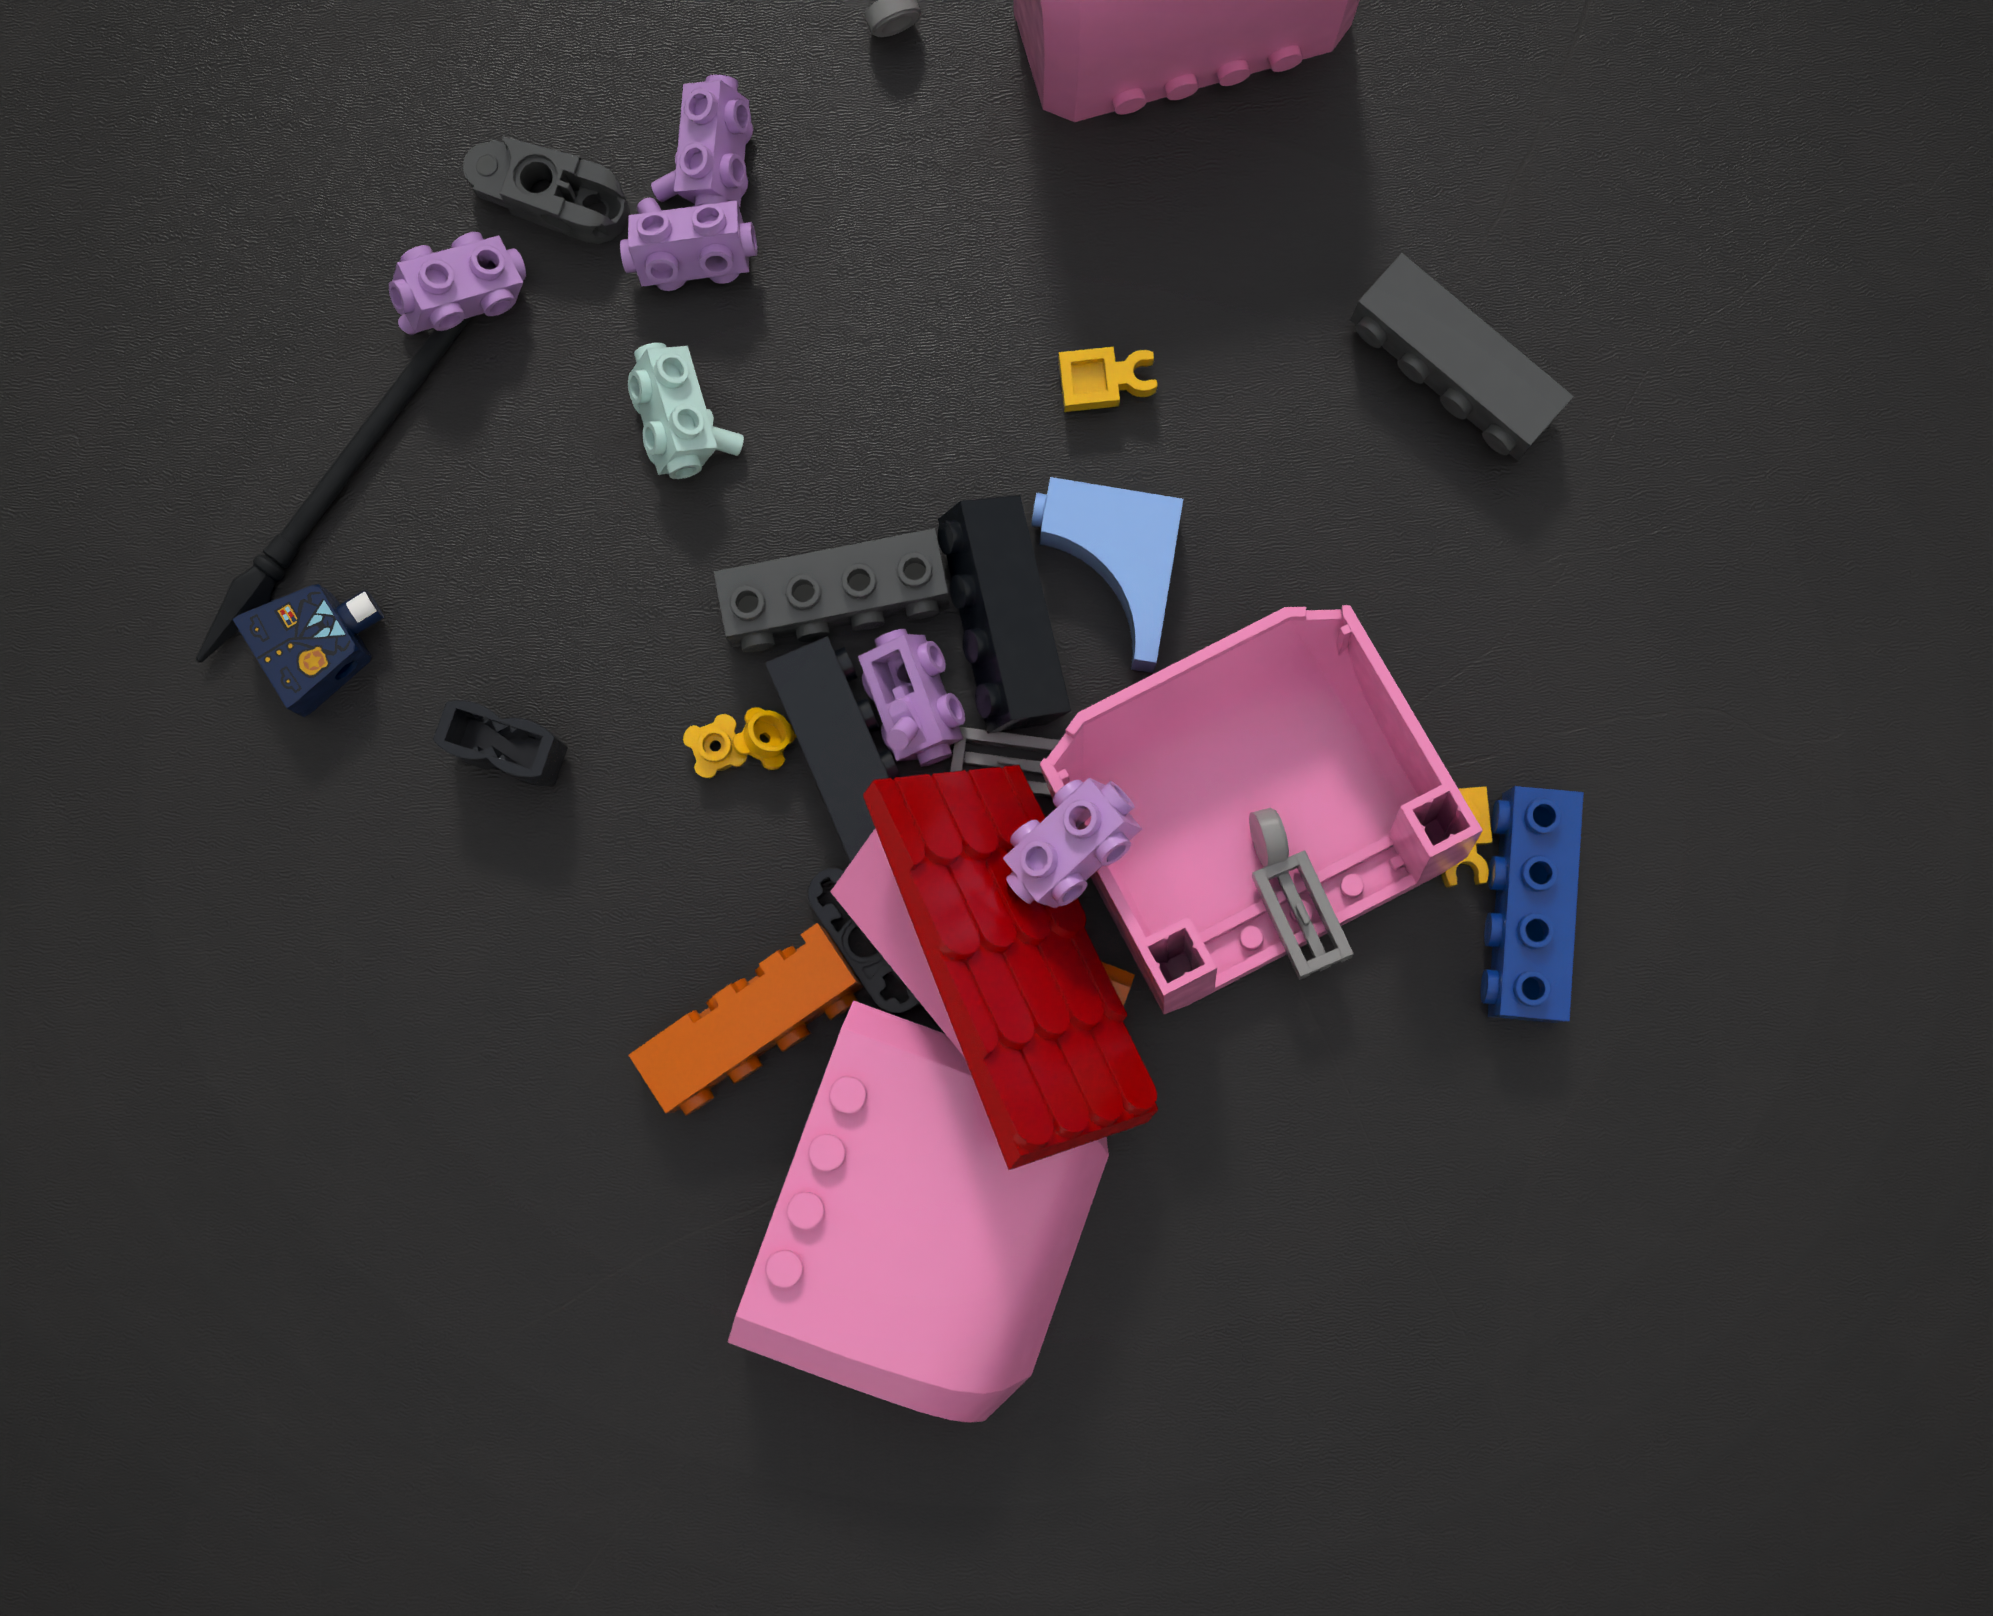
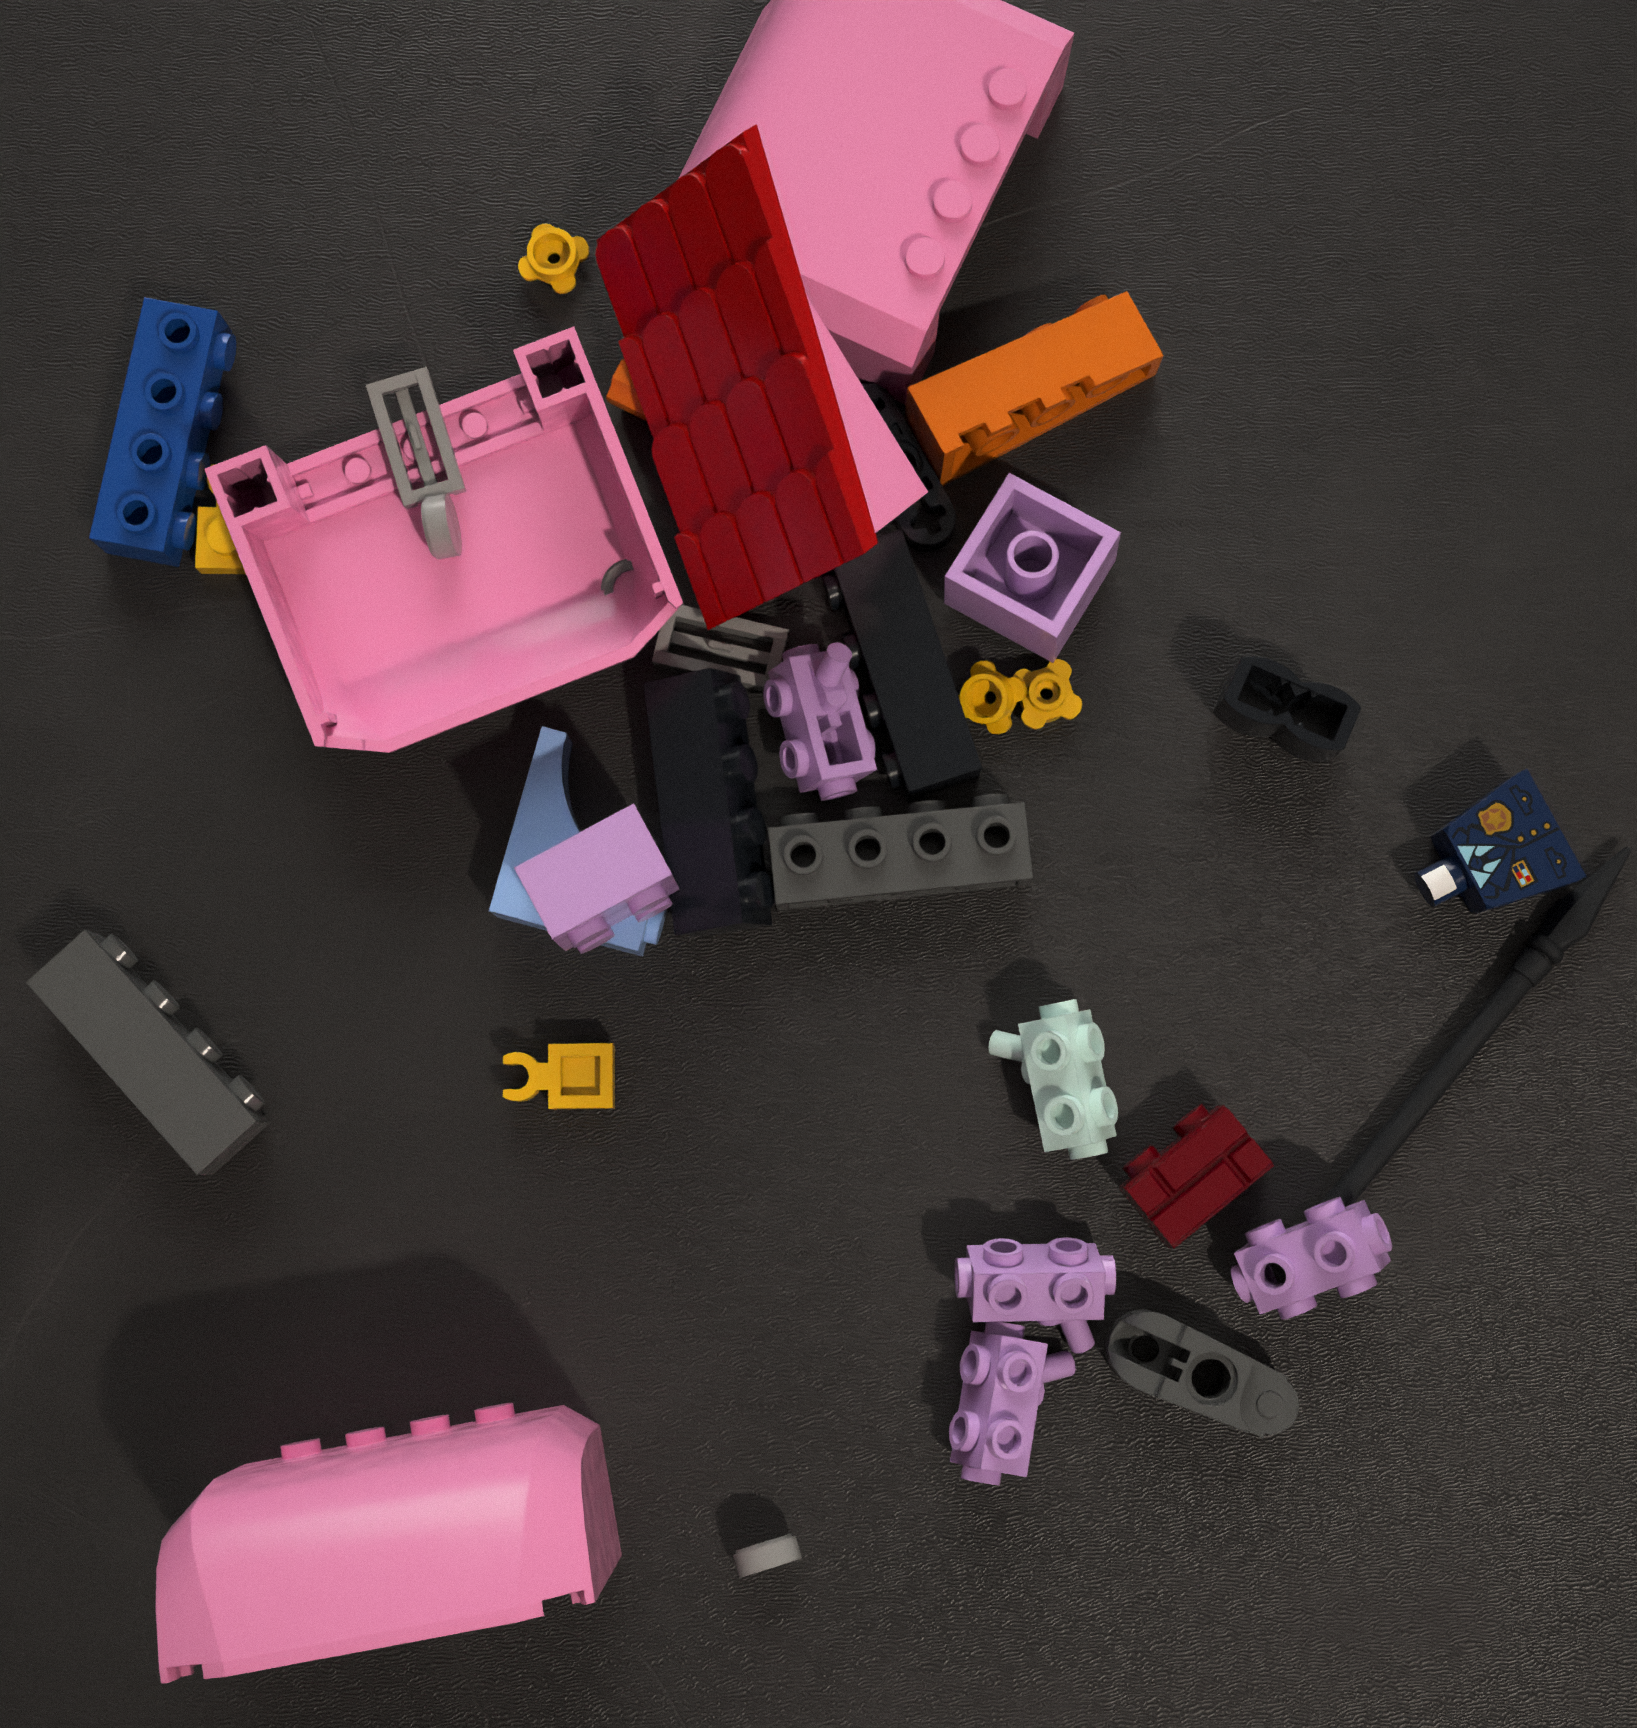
camera: 175 degrees left, 0 degrees up
(561, 346) = (1193, 1174): none -> dark red brick
(734, 849) = (1031, 567): none -> lavender brick
(1056, 857) = (674, 485): lavender brick -> none
(1086, 511) = (598, 881): none -> lavender brick
(1215, 1103) = (548, 241): none -> yellow plate

